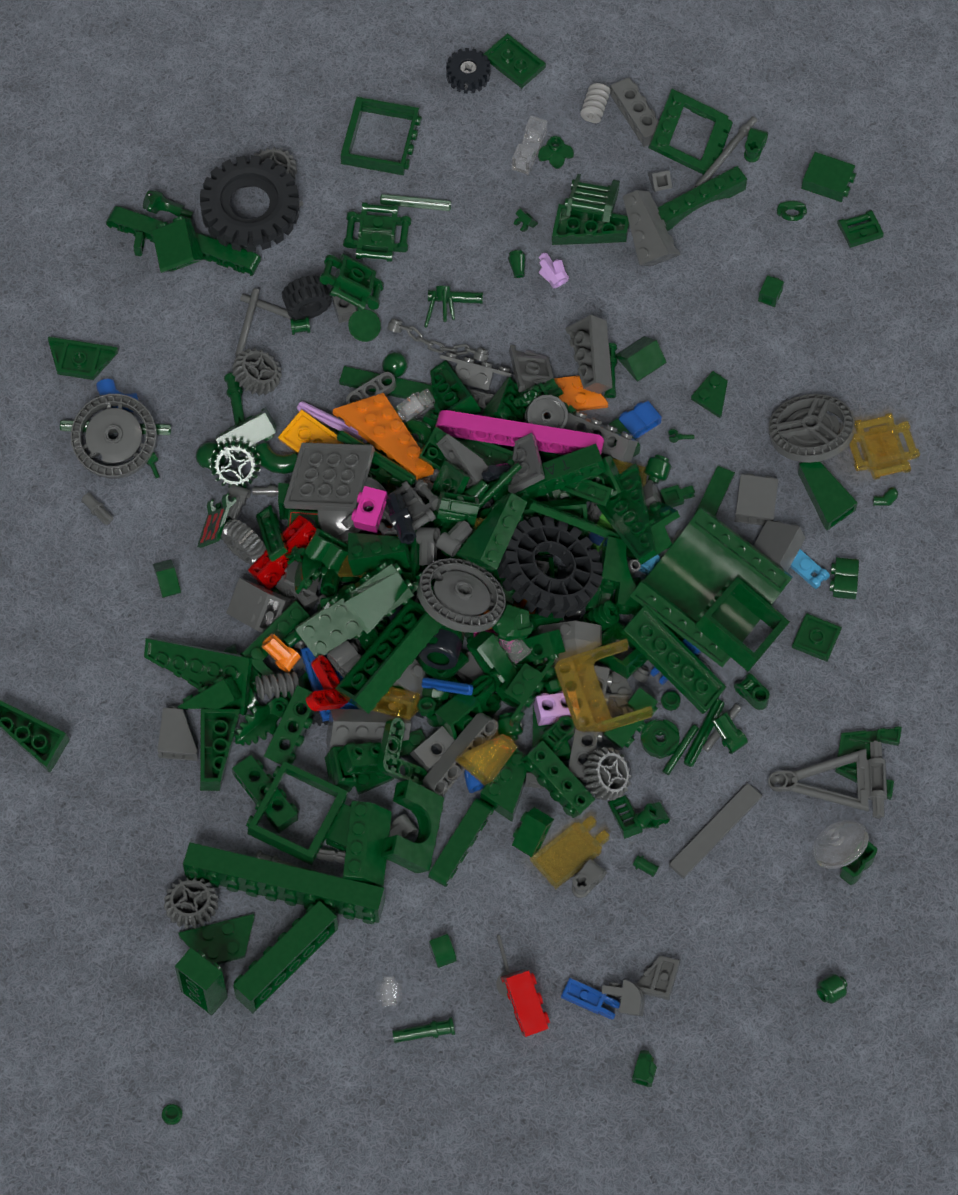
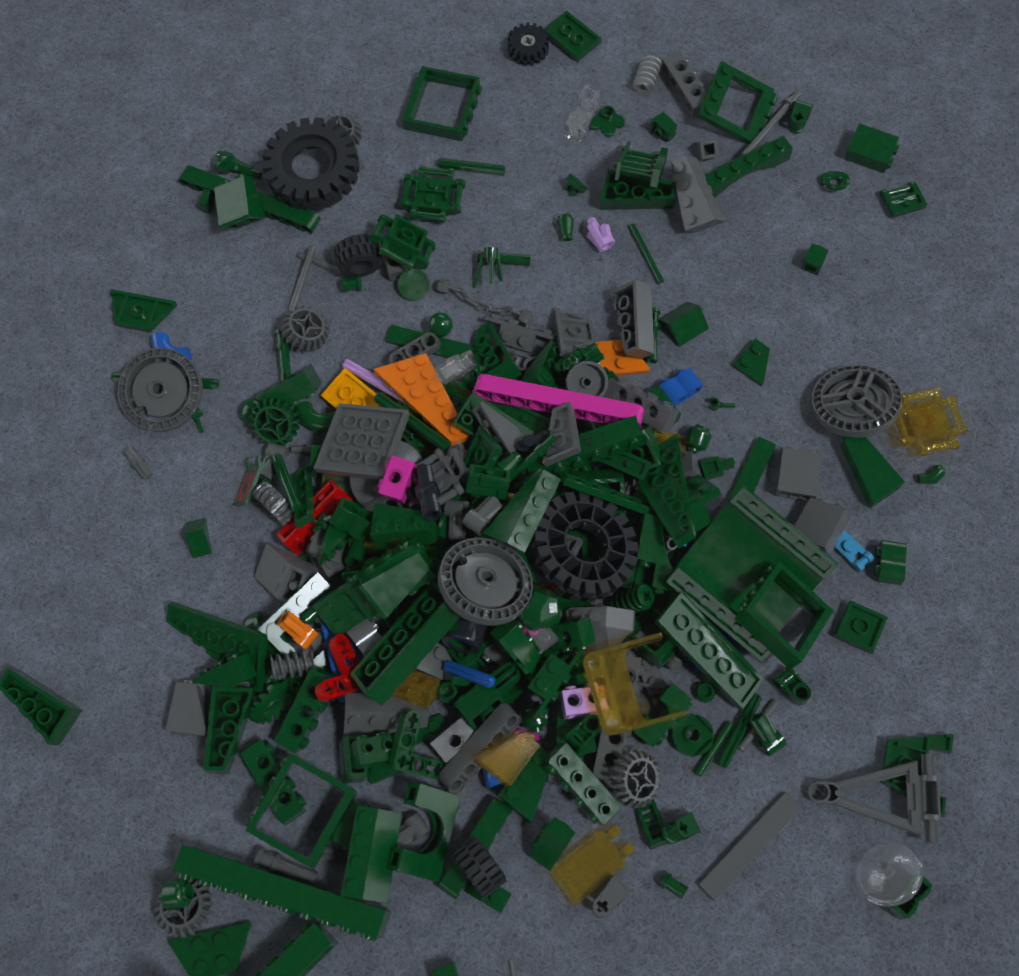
camera: 10 degrees right, 5 degrees up
(187, 886) = (176, 894): none -> dark green head
(254, 519) = (286, 482): none -> dark green axle
(468, 847) = (479, 866): none -> black tyre
(474, 880) = (496, 900): none -> dark green slope
(599, 286) = (642, 246): none -> dark green bar
(614, 157) = (663, 127): none -> dark green brick

